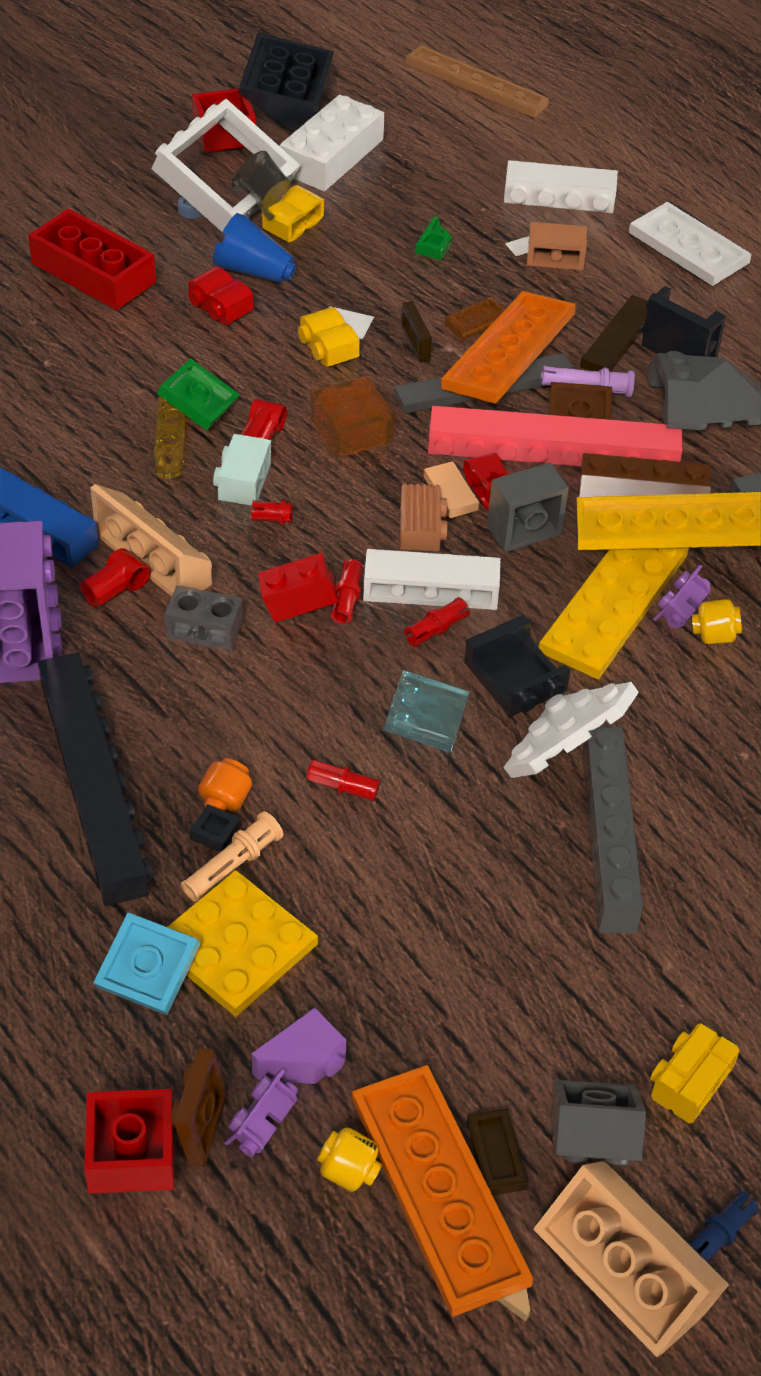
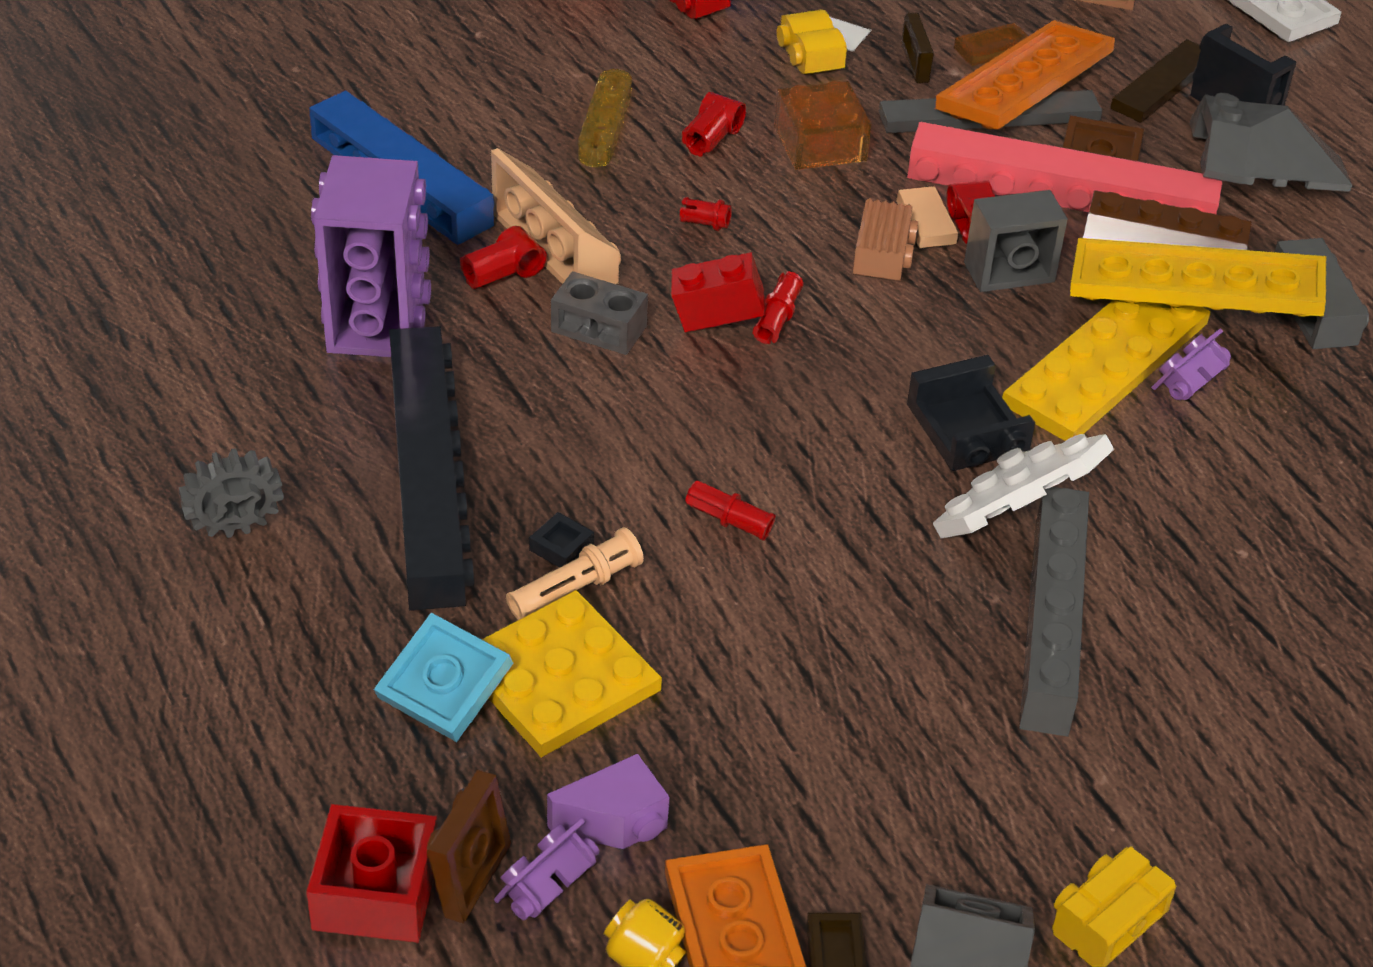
camera: 10 degrees right, 5 degrees down
(198, 394) = (644, 80): green plate -> none
(225, 785) = (585, 494): orange head -> none
(243, 469) = (681, 164): light aqua brick -> none
(426, 711) = (848, 448): clear light blue plate -> none
(431, 578) = (883, 306): white brick -> none
(436, 622) = (881, 354): red pin -> none
(621, 382) = (1155, 127): lavender pin -> none
(717, 622) = (1232, 397): yellow head -> none

